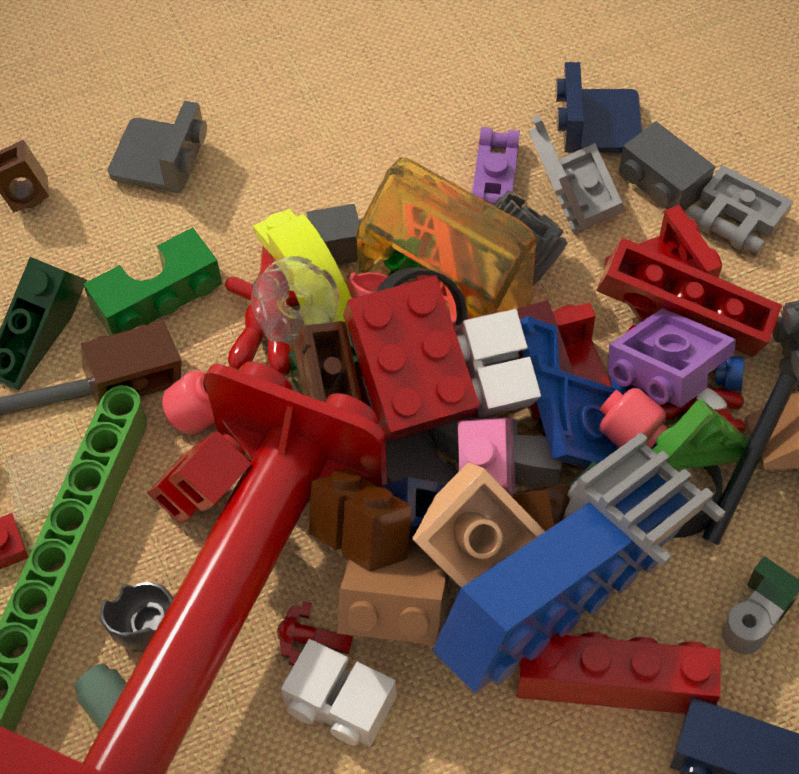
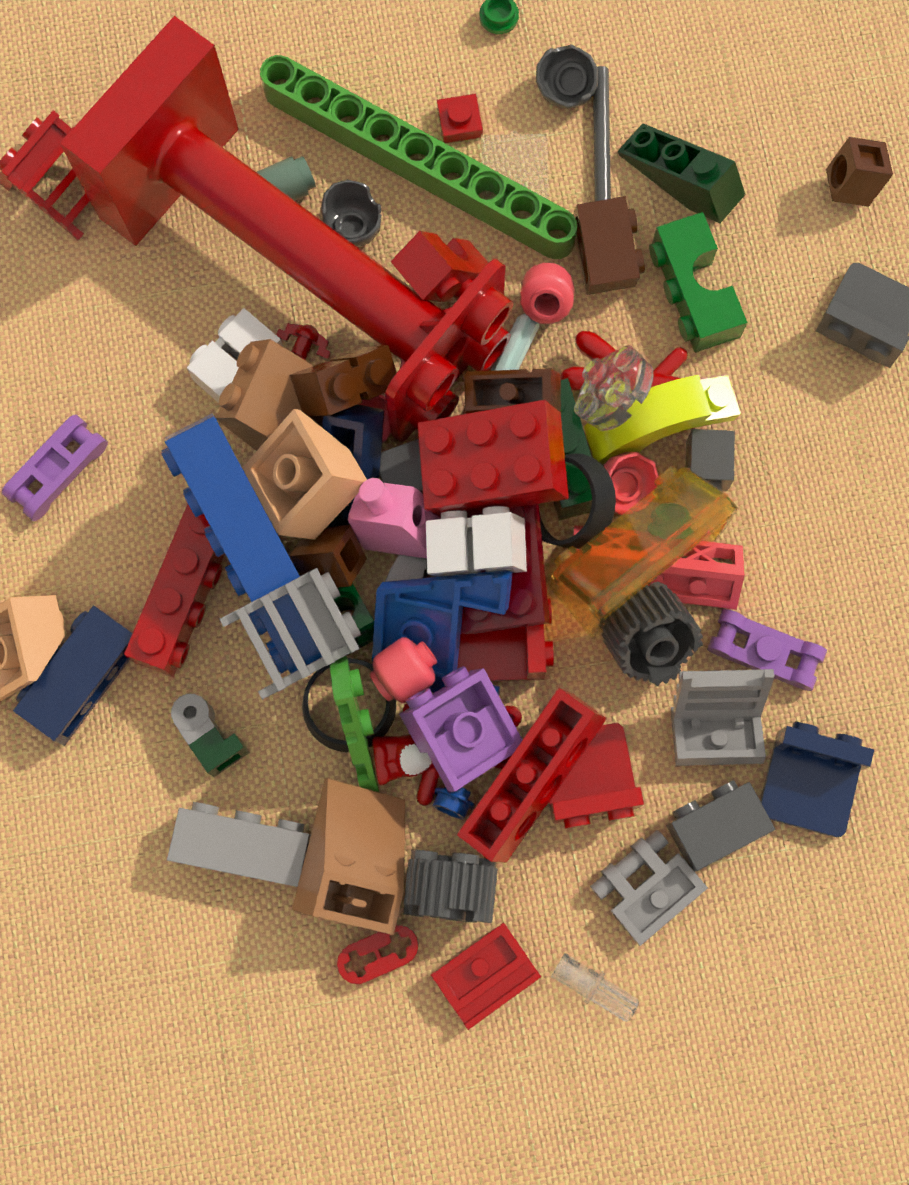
camera: 105 degrees right, 20 degrees up
(751, 456) = (342, 771): black bar -> none

